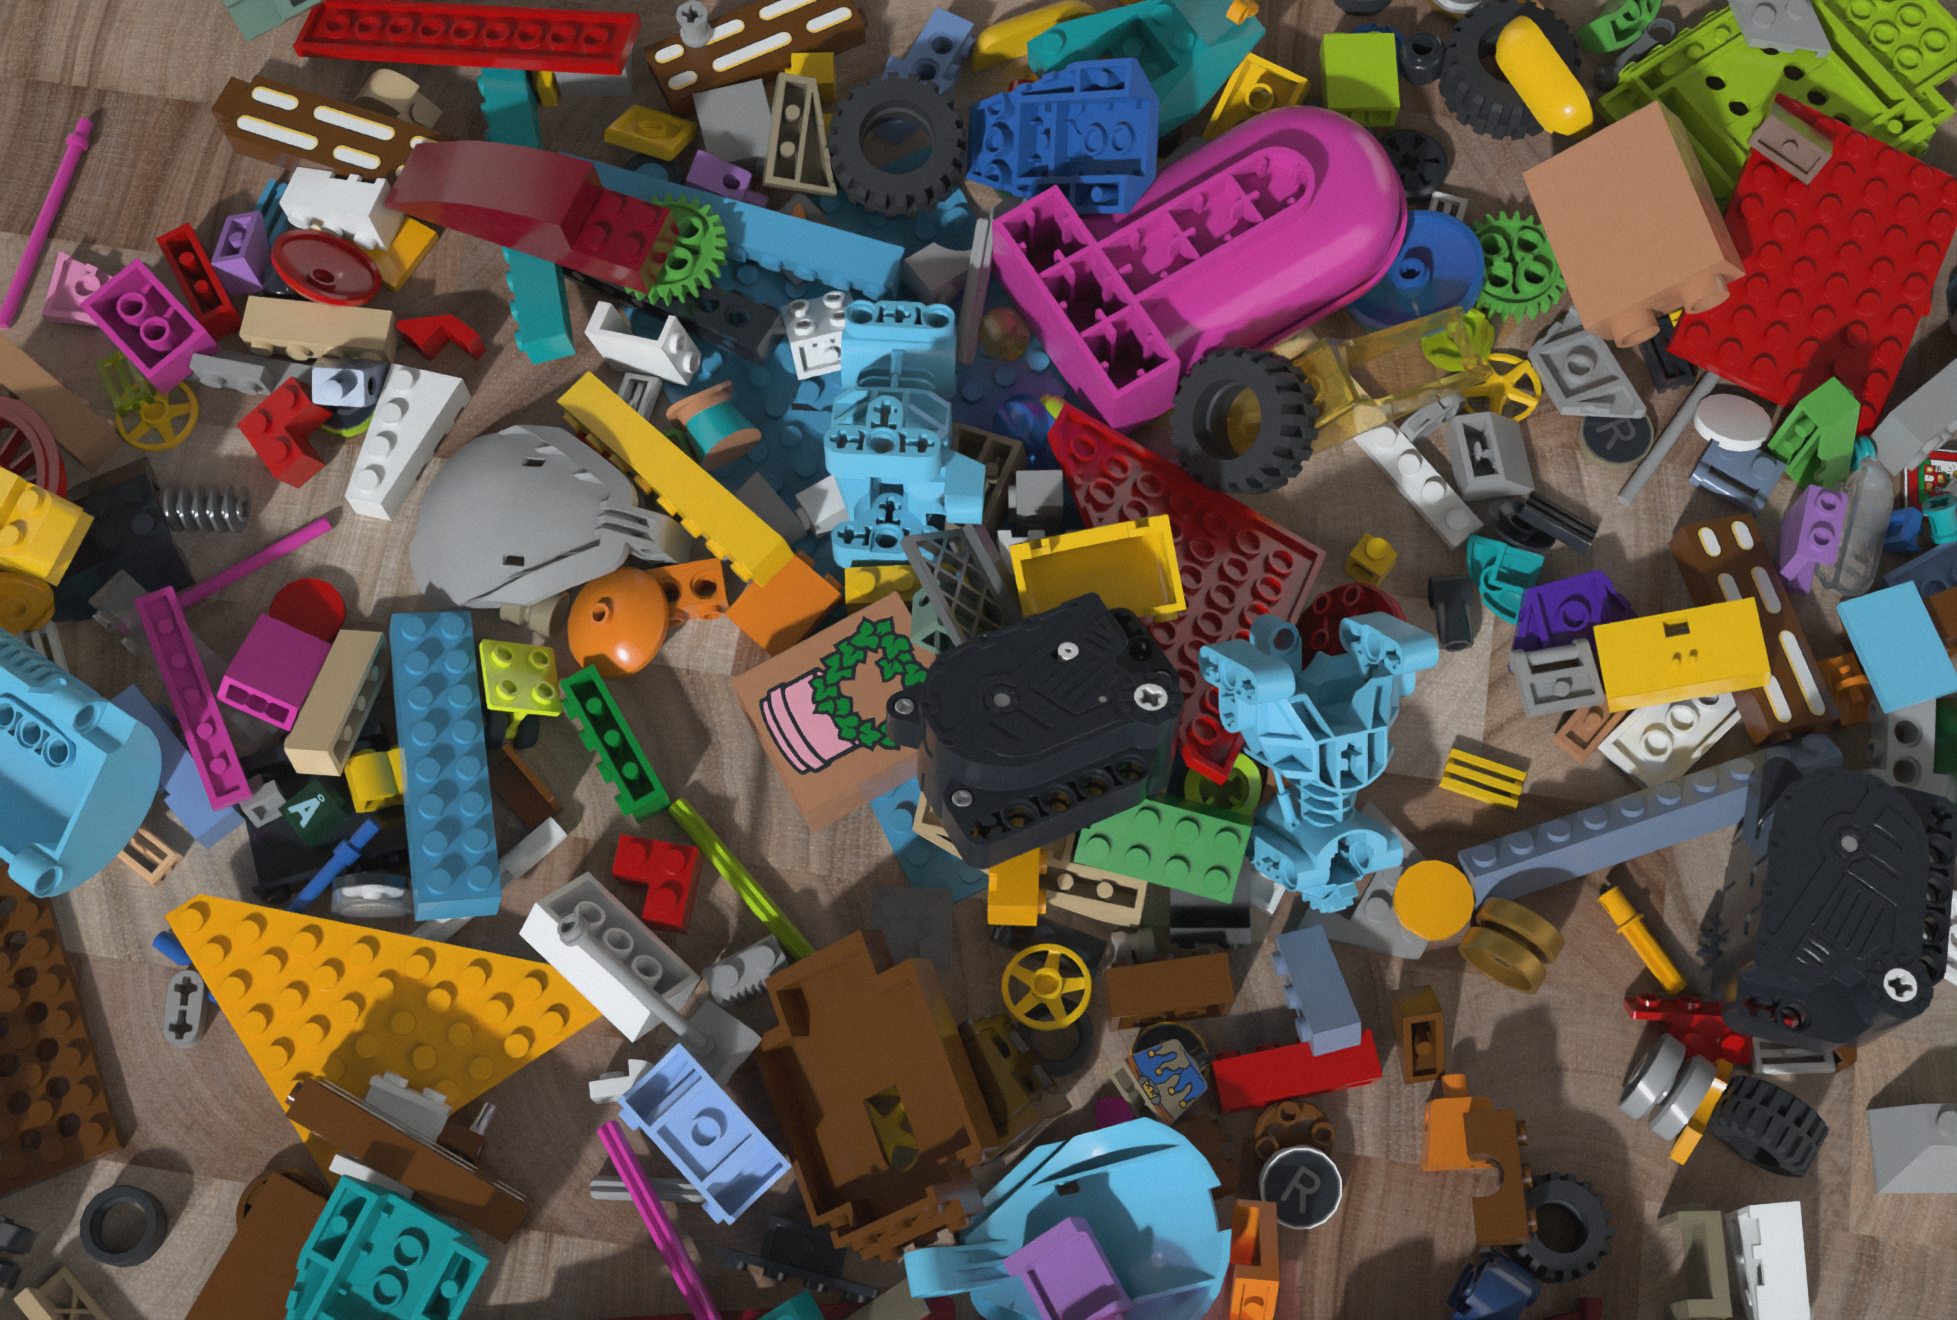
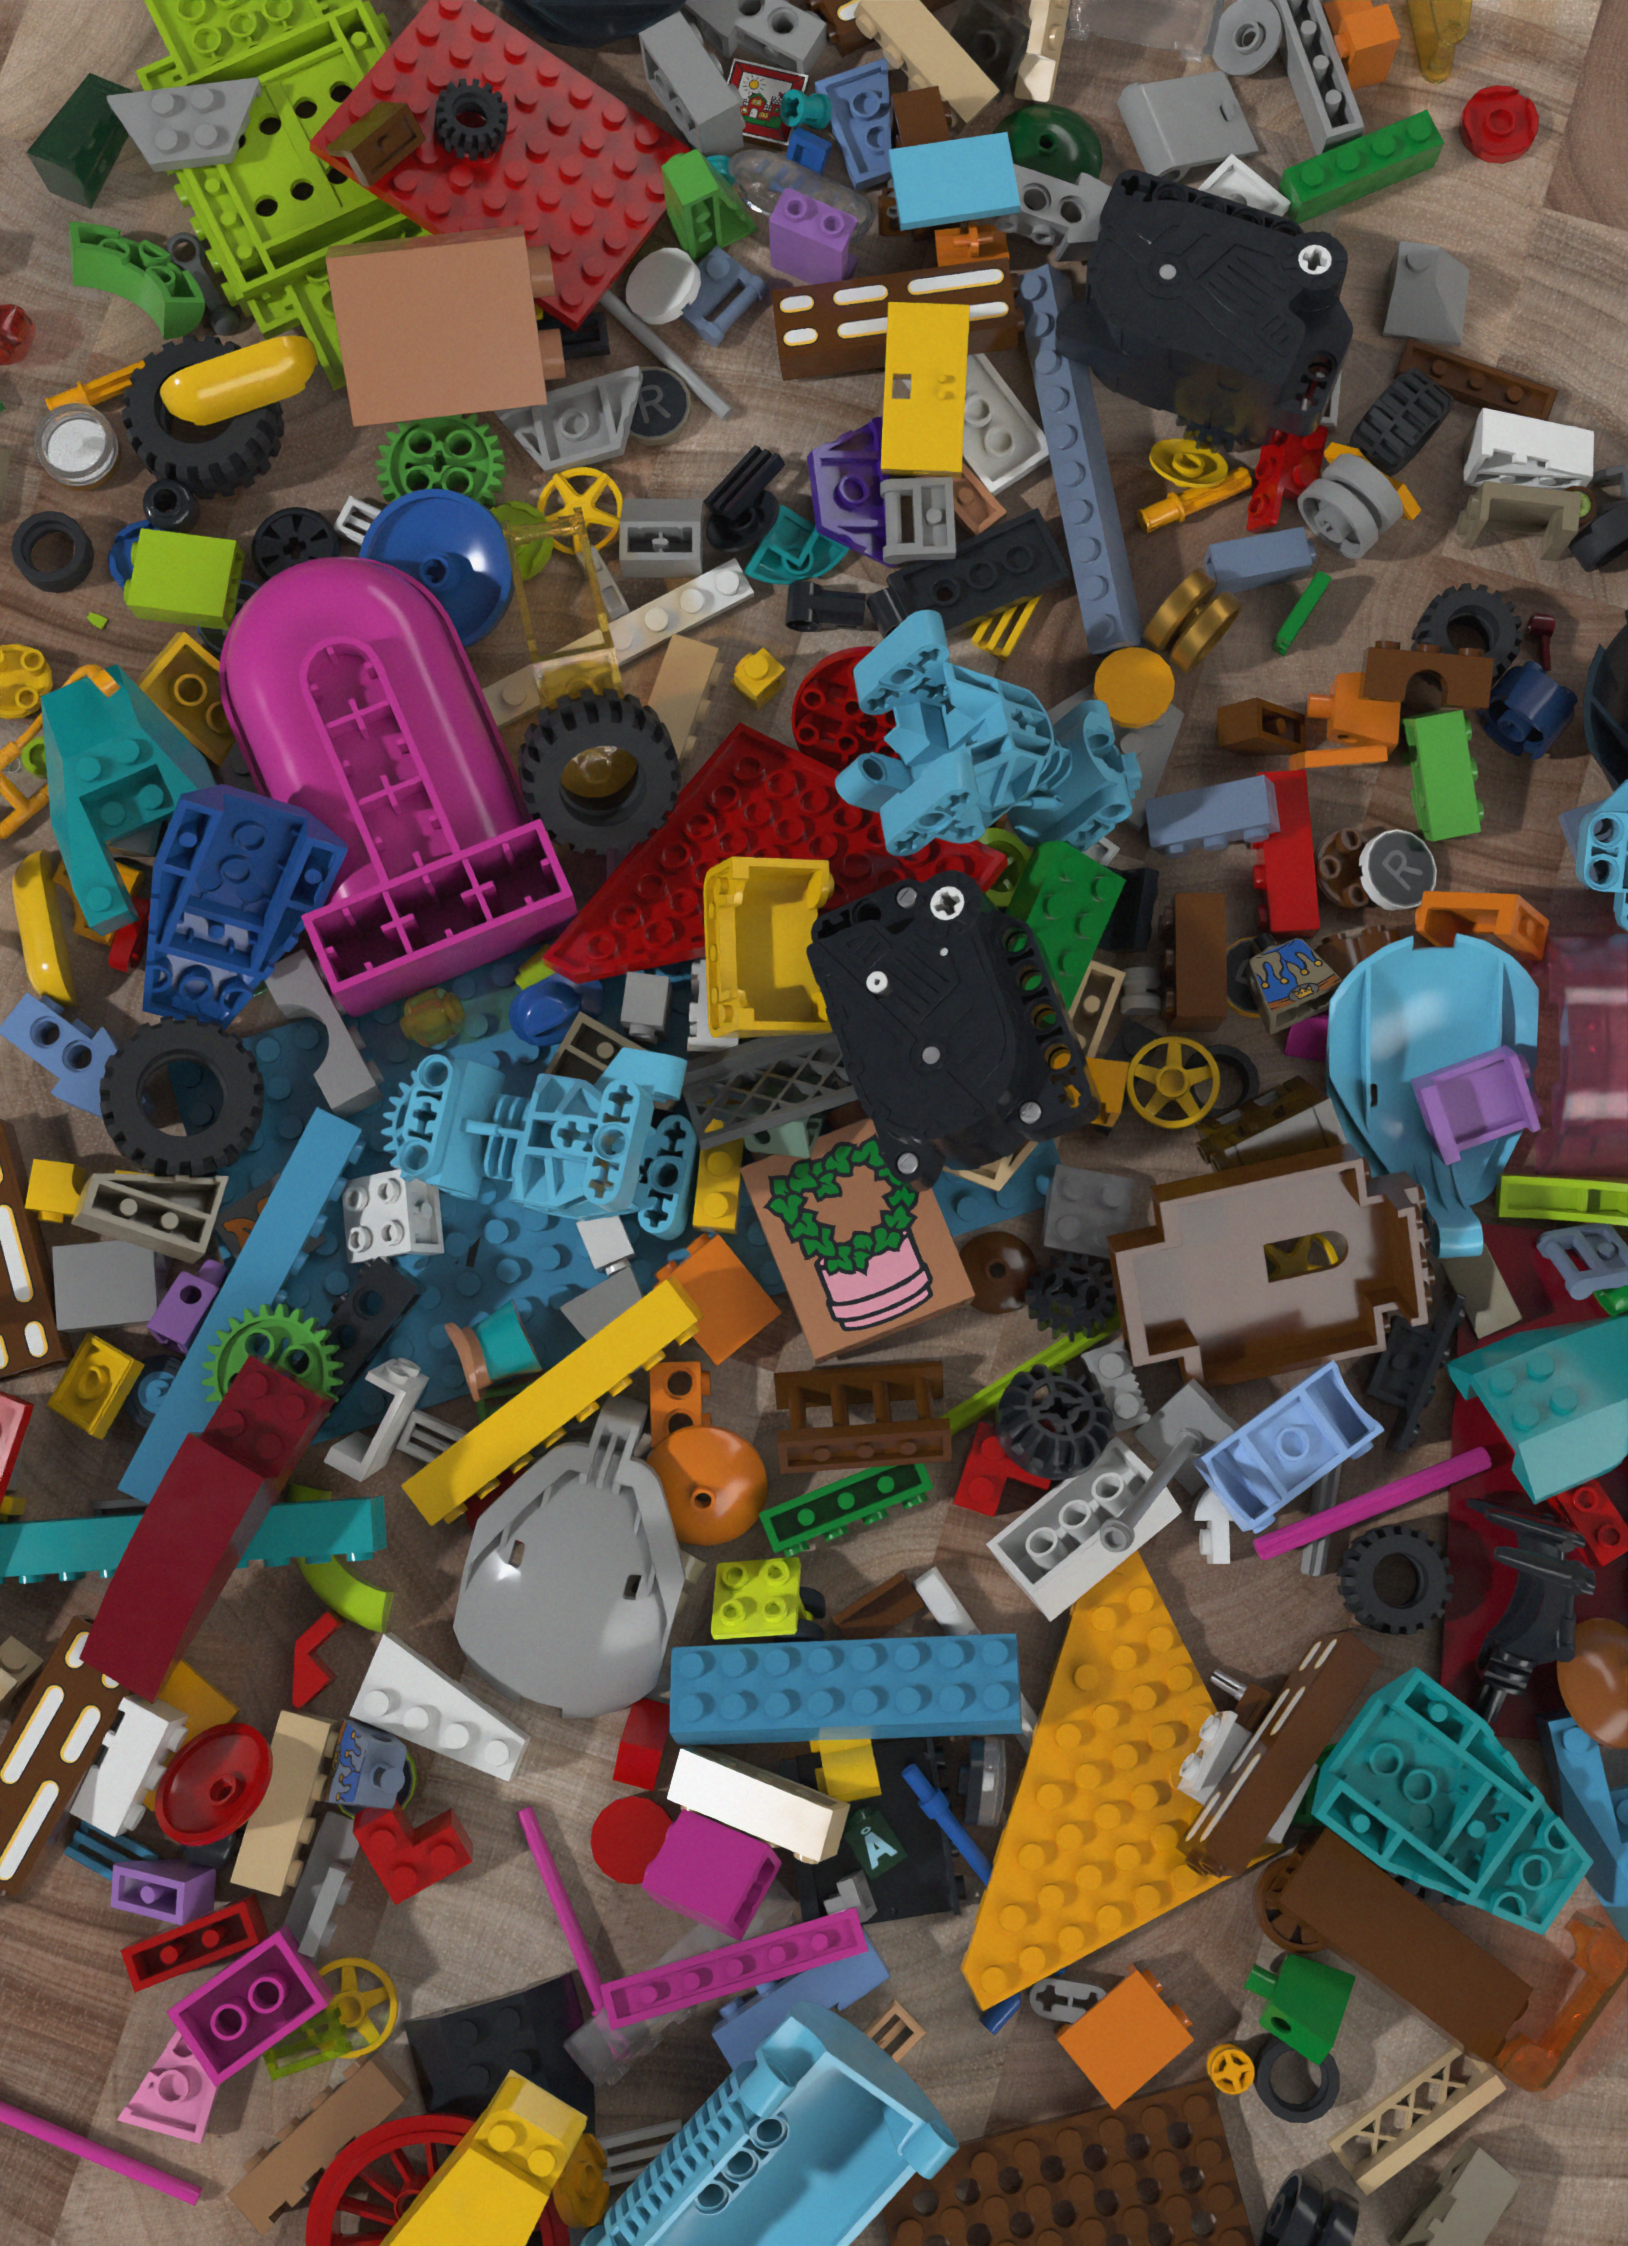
camera: 80 degrees left, 10 degrees up
(121, 1158) = (1234, 2077): none -> light orange wheel
(154, 1061) = (1126, 2036): none -> orange panel
(188, 1218) = (1302, 2003): none -> green torso
(207, 512) = (490, 1949): dark grey piece -> none
(378, 602) = (643, 1744): none -> red slope
(501, 355) = (339, 1583): none -> lime brick
(557, 1255) = (1430, 1574): none -> black tyre
(662, 748) = (862, 1444): none -> reddish brown fence
(678, 911) = (1042, 1435): none -> black gear
(824, 903) = (1068, 1300): none -> black gear
(851, 874) = (1002, 1248): none -> reddish brown dish
(975, 292) = (369, 1032): light grey axle -> none
(1312, 28) = (97, 620): none -> lime piece
(1337, 497) = (683, 691): none -> tan brick
(1400, 1106) = (1338, 757): none -> orange tile
(1407, 1217) = (1442, 773): none -> bright green wedge
(1514, 751) = (985, 577): none -> black hinge
(1547, 1058) = (1301, 612): none -> green tile
(1592, 1010) = (1260, 560): none -> sand blue brick
(1674, 926) = (1186, 465): none -> yellow dish
(1837, 1214) = (1478, 383): none -> reddish brown tile
(1855, 209) = (471, 99): none -> black tyre

